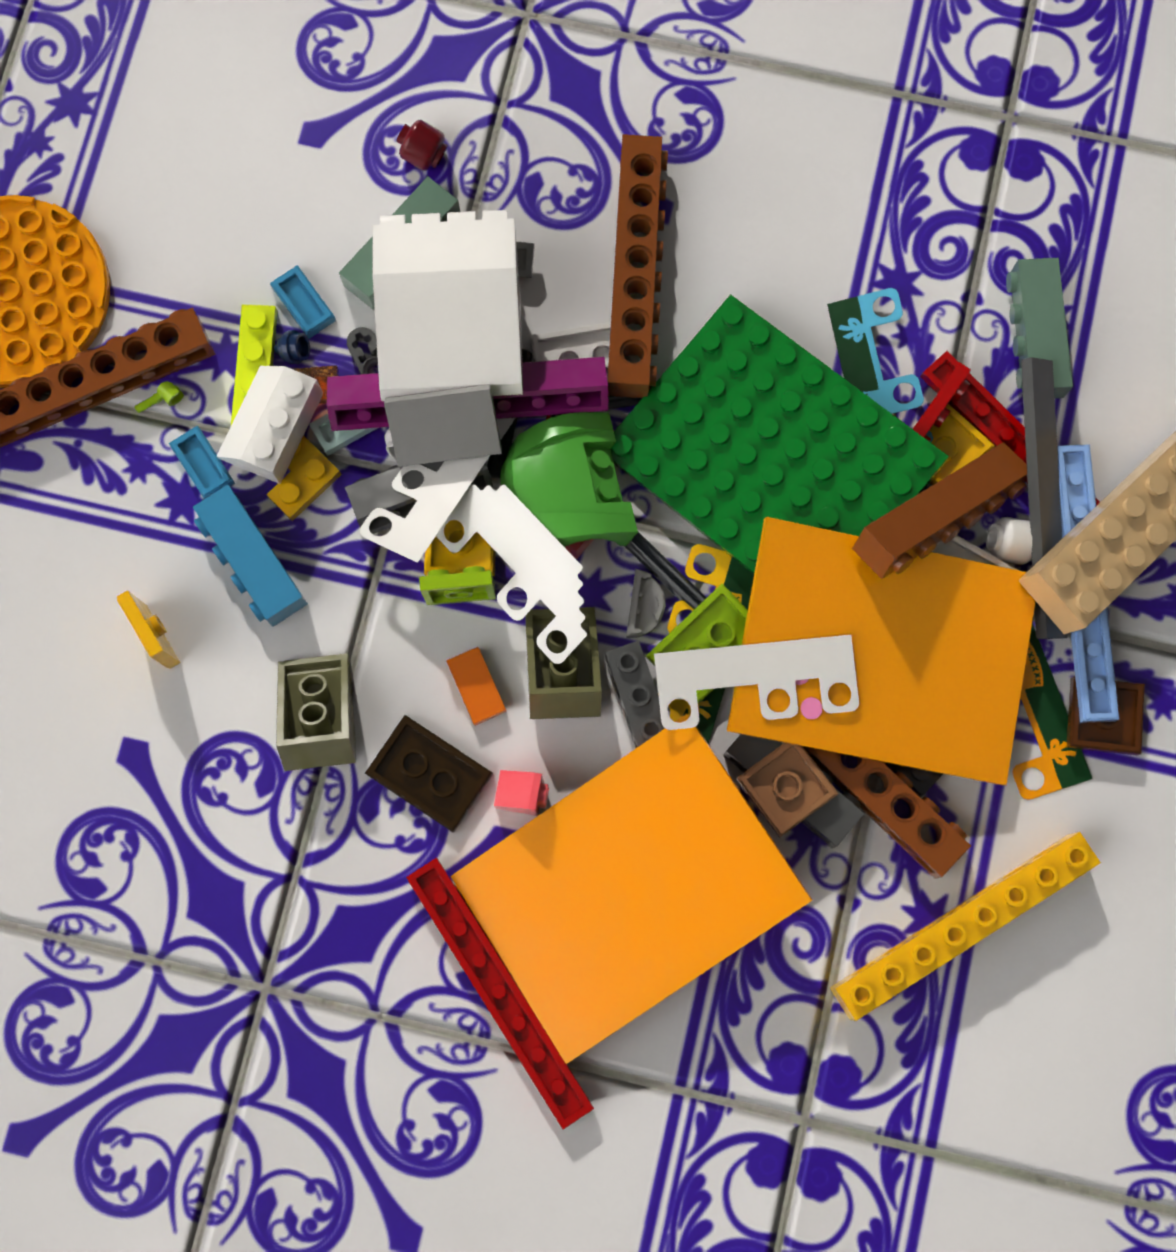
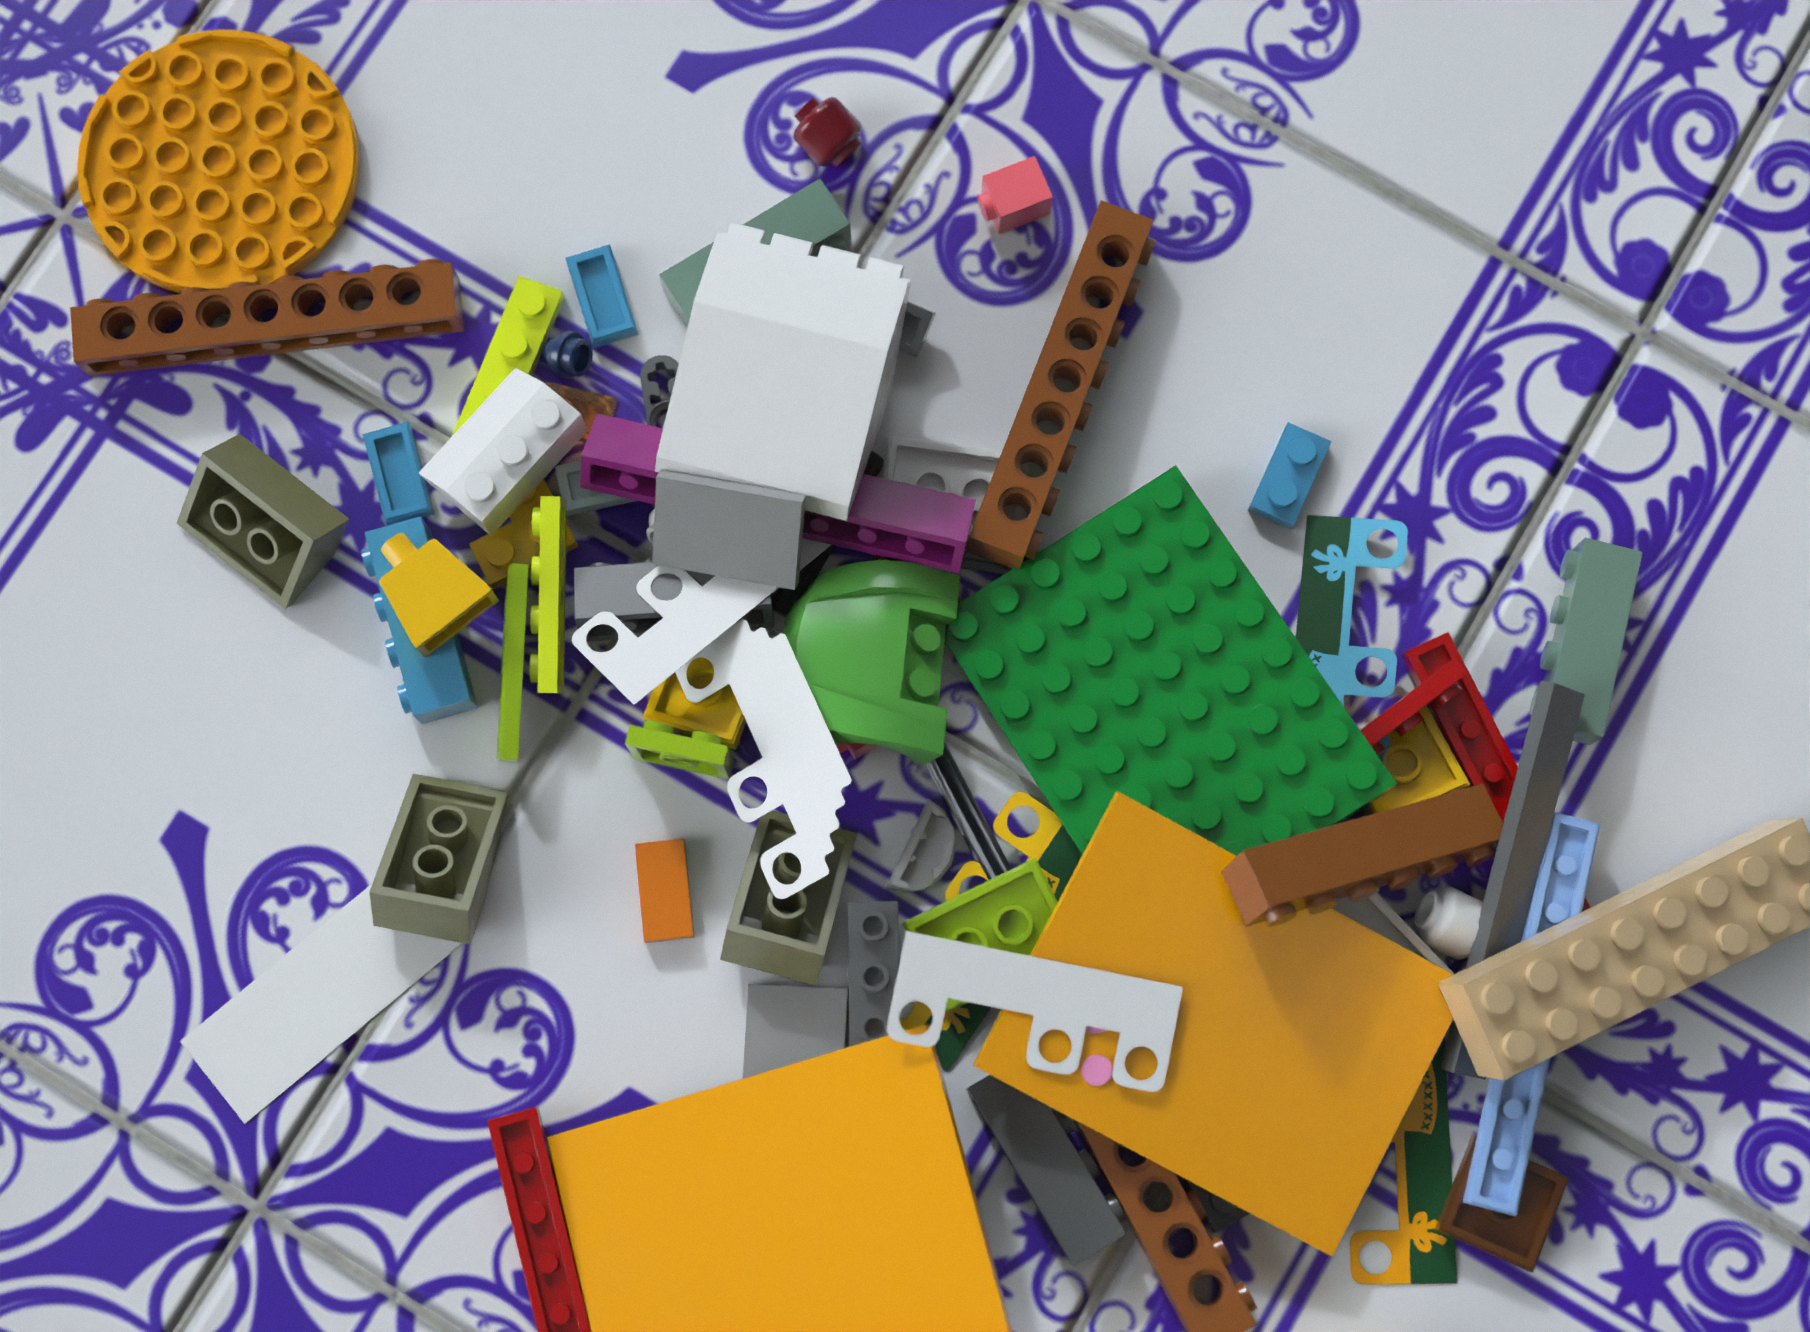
camera: 15 degrees right, 0 degrees up
(116, 521) = (261, 519): none -> olive slope
(149, 629) = (254, 680): yellow plate -> none
(166, 391) = (381, 362): lime hand -> none
(253, 530) = (432, 591): none -> yellow torso
(257, 839) = (309, 1005): none -> white sticker
(323, 564) = (512, 663): none -> lime tile
(328, 495) = (550, 574): none -> neon yellow plate
(429, 773) = (563, 989): dark brown tile -> none
(521, 792) = (675, 1056): coral slope -> none
(563, 150) = (1015, 195): none -> coral brick
(592, 747) = (792, 1025): none -> light grey tile
(786, 787) = (1032, 1165): medium nougat tile -> none
(807, 281) = (1289, 475): none -> dark azure plate

